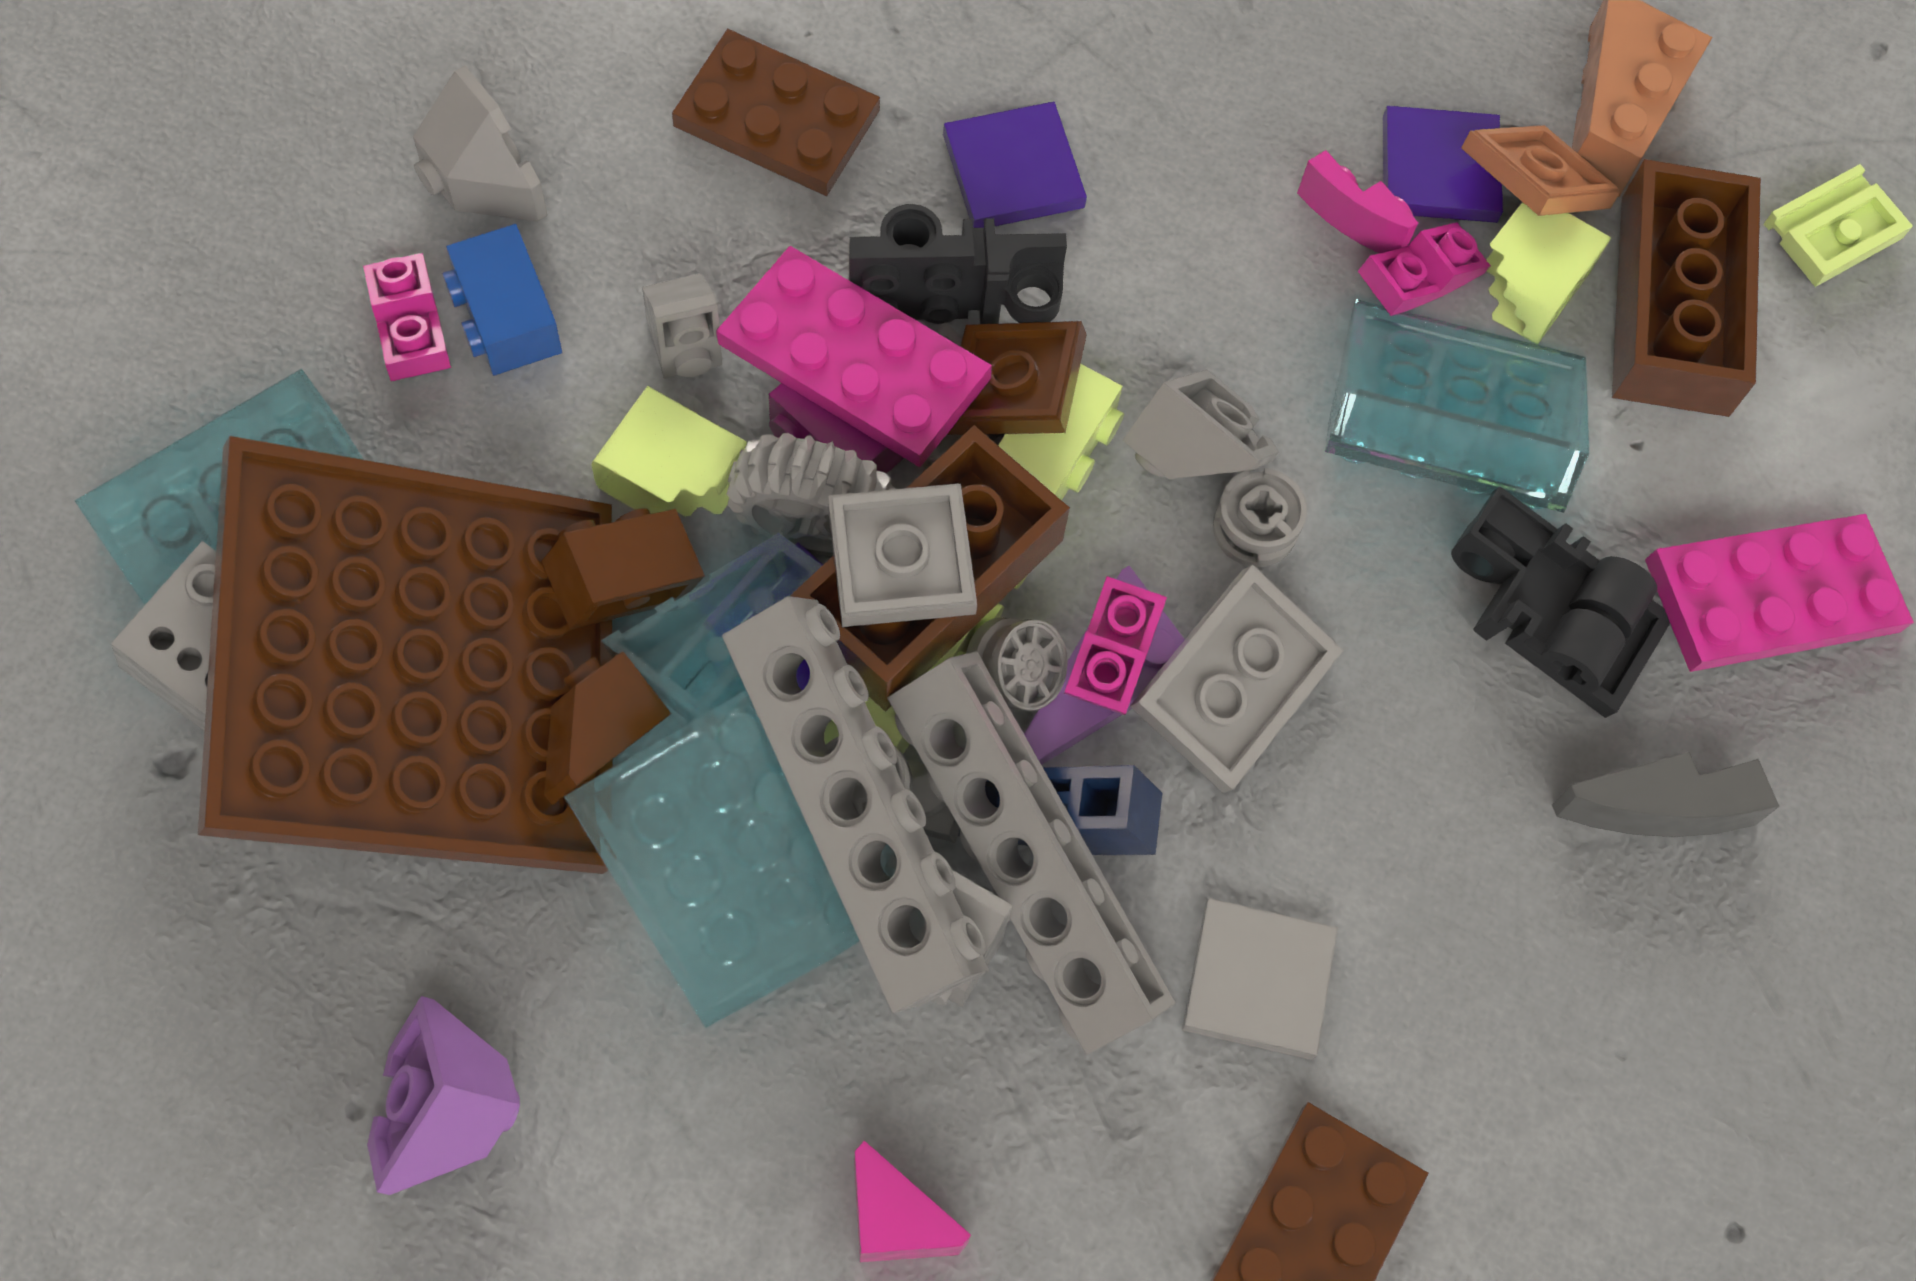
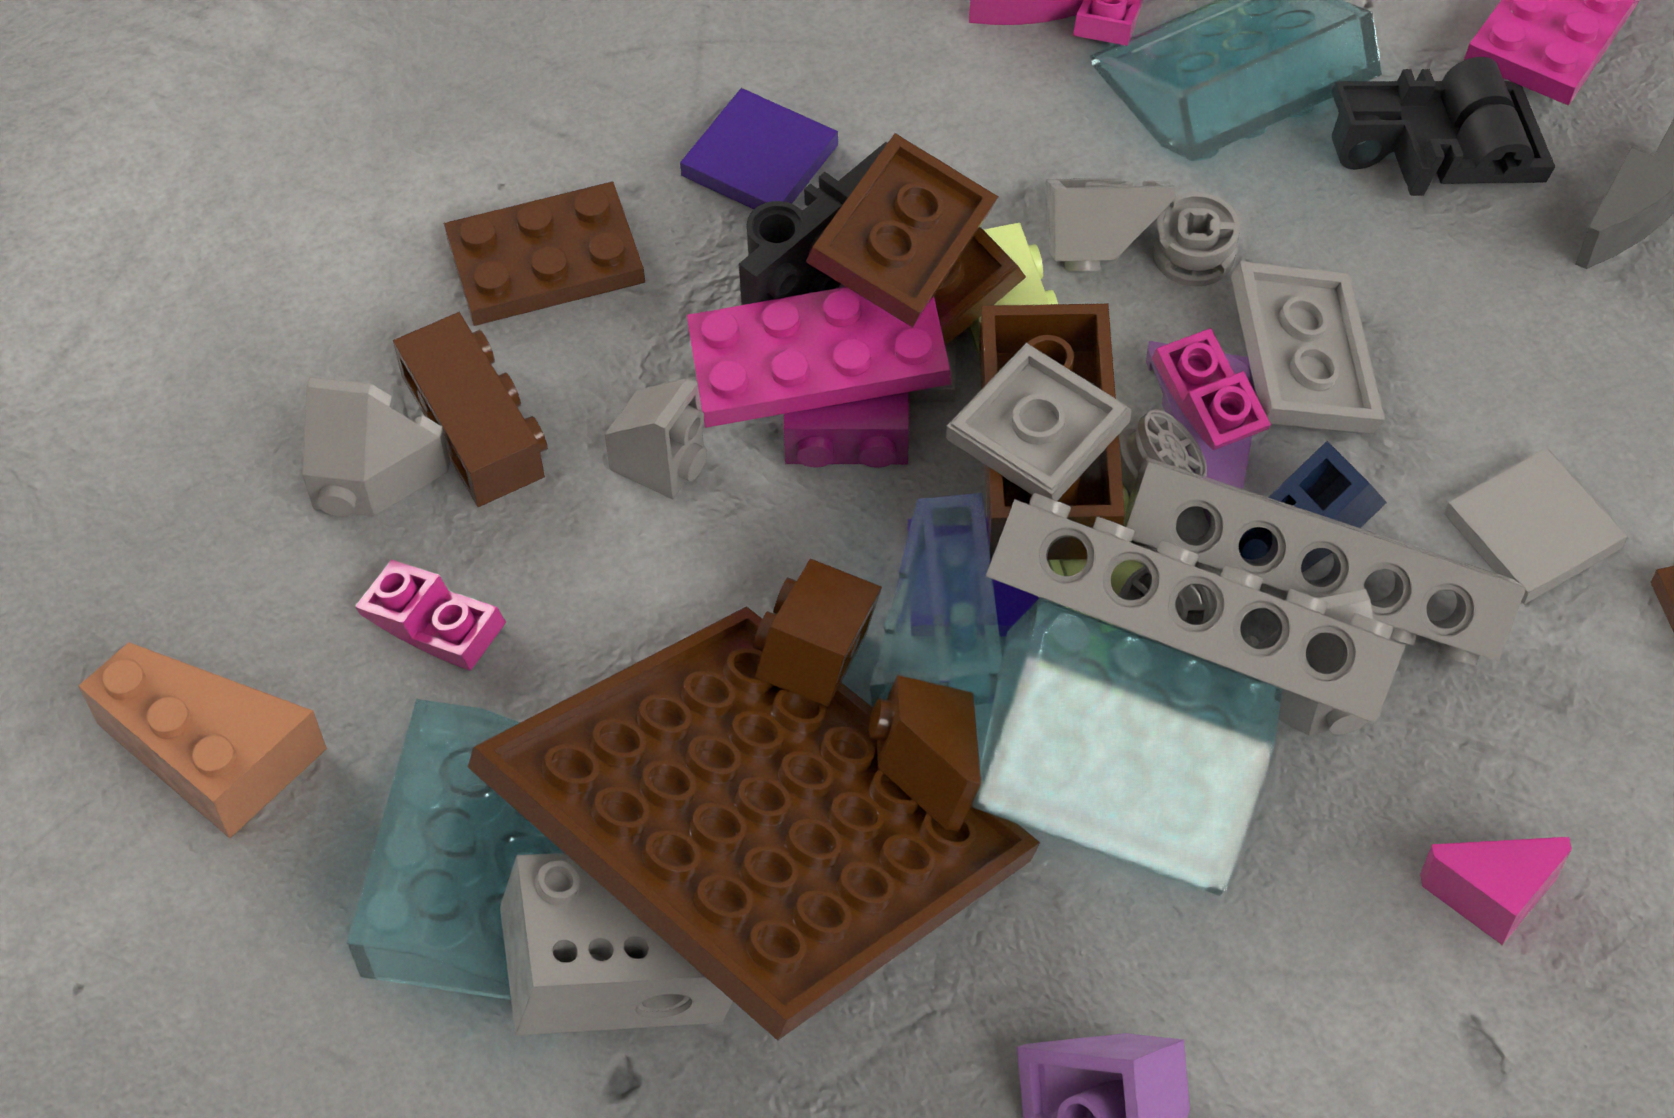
camera: 35 degrees left, 10 degrees down
(159, 271) = (203, 733): none -> nougat wedge
(503, 300) = (498, 537): blue brick -> none
(589, 186) = (477, 408): none -> reddish brown brick
(667, 458) = (756, 538): yellowish green piece -> none
(786, 487) = (890, 463): light grey gear -> none
(990, 313) = (902, 229): none -> reddish brown plate

